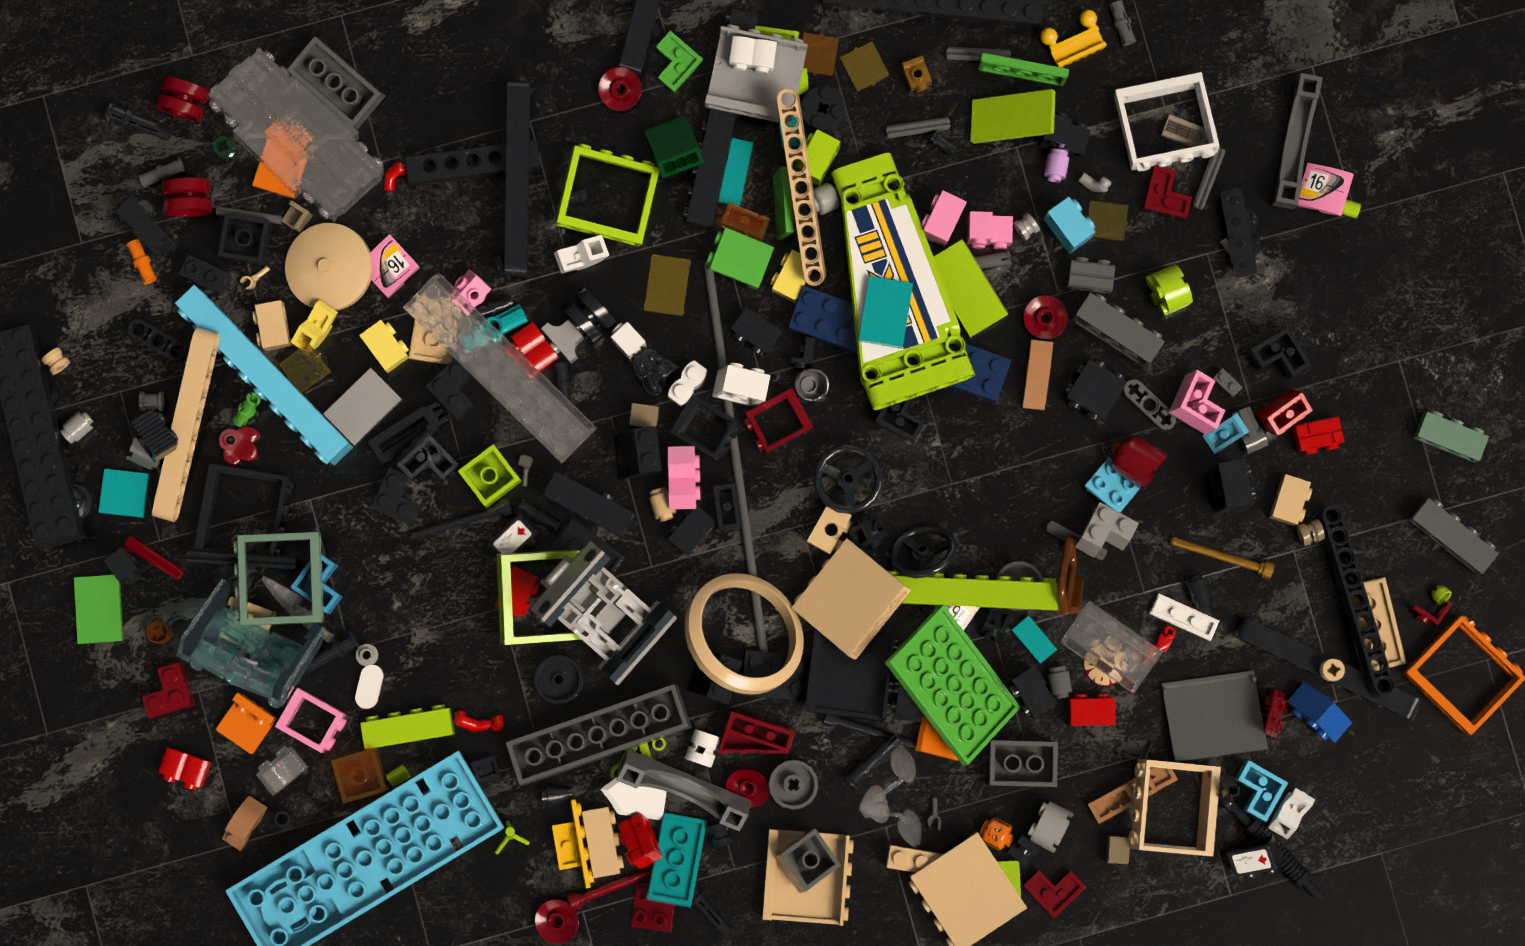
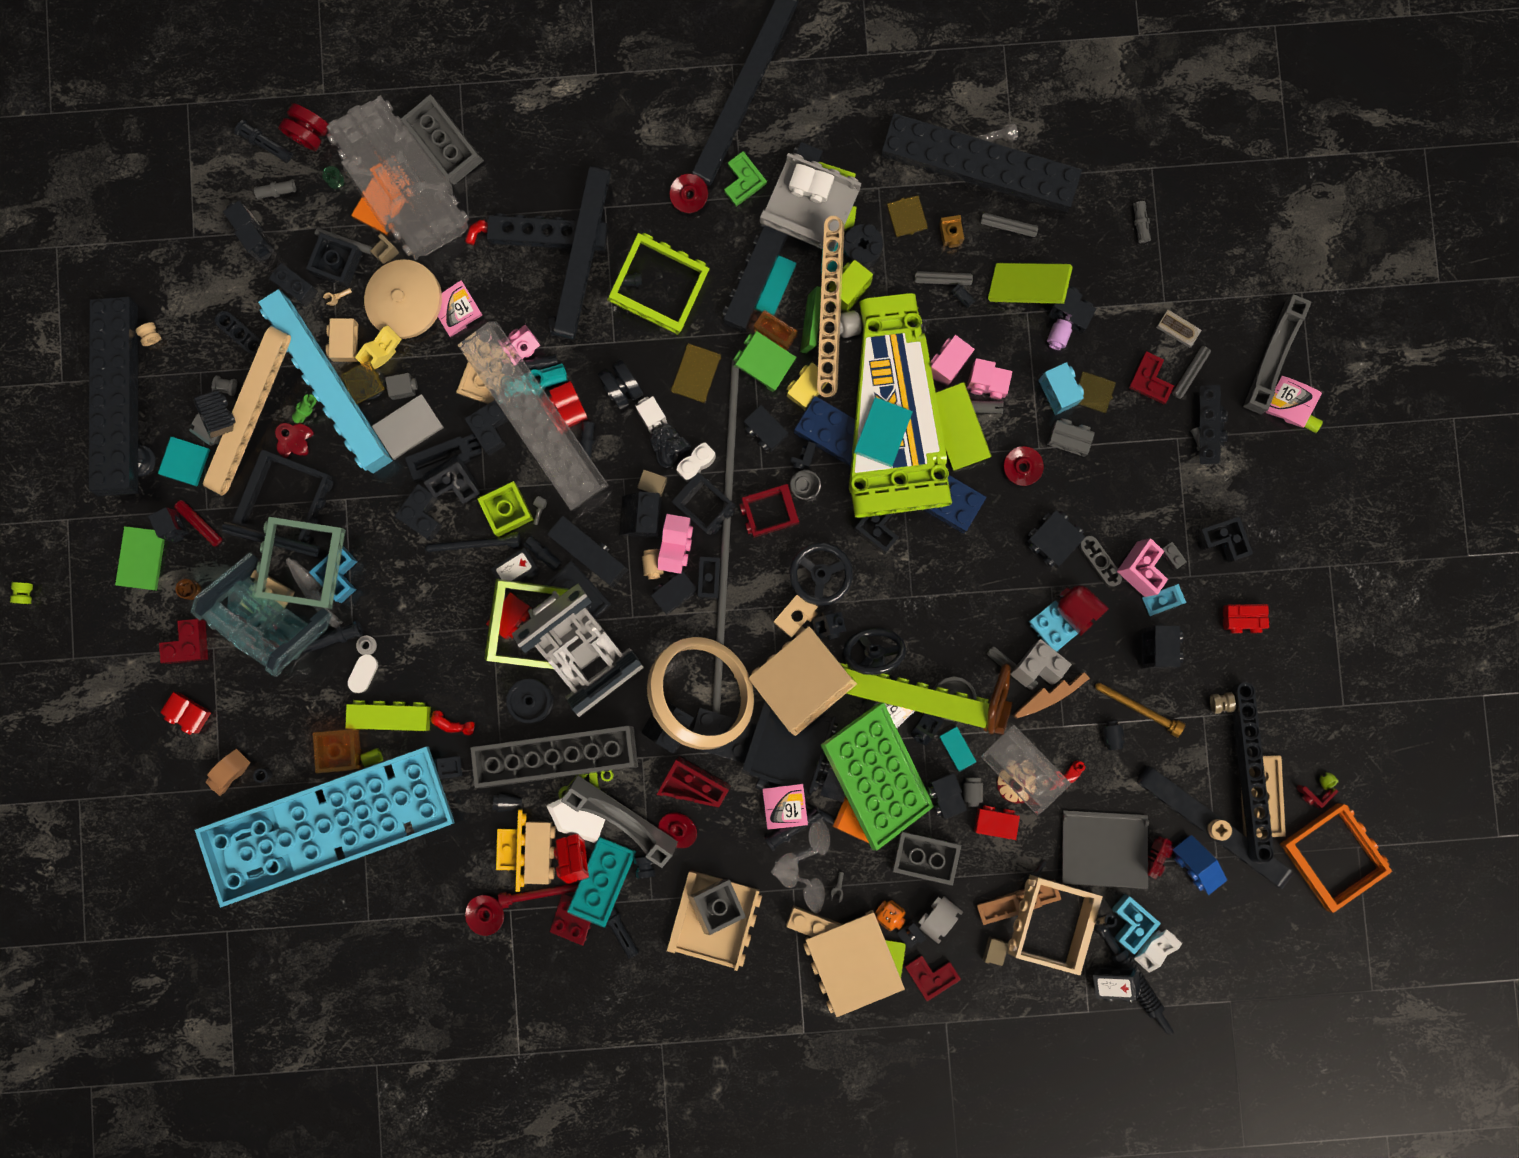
camera: 15 degrees right, 0 degrees up
(77, 427) = (154, 395): light grey brick -> none
(141, 261) = (241, 263): orange pin -> none
(186, 197) = (290, 213): dark red wheel -> none
(246, 723) = (248, 684): orange bracket -> none
(281, 770) = (270, 732): clear brick -> none
(292, 708) = (288, 682): bright pink window -> none
(347, 363) = (401, 386): none -> dark grey brick
(384, 346) = (437, 377): light yellow brick -> none
(510, 834) = (458, 830): lime plant -> none
(564, 339) = (596, 402): light grey brick -> none
(582, 255) = (626, 332): white brick -> none
(674, 146) = (725, 252): dark green brick -> none
(705, 740) = (648, 780): white wheel -> none
(741, 385) = (743, 472): white brick -> none
(802, 794) = (710, 844): dark grey wheel -> none
(820, 53) = (870, 197): clear orange piece -> none
(859, 738) = (785, 806): none -> slope
(1023, 69) = (1047, 244): bright green tile -> none
(1026, 226) = (1022, 383): light grey wheel -> none
(1037, 374) = (1006, 515): medium nougat slope -> none
(1076, 46) = (1096, 234): yellow gear -> none
(1093, 185) = (1090, 359): light grey arm -> none
(1116, 567) = (1043, 698): none -> medium nougat slope
(1118, 330) = (1086, 489): dark grey brick -> none
(1160, 88) = (1166, 284): white window -> none
(1169, 290) = (1138, 463): lime brick -> none
(1184, 617) = (1095, 755): white tile -> none
(1255, 438) = (1190, 609): dark grey piece -> none
(1284, 412) = (1220, 591): red brick -> none
(1290, 500) = (1210, 670): tan brick -> none
(1451, 436) = (1364, 642): sand green brick -> none
(1453, 536) = (1350, 731): dark grey brick -> none

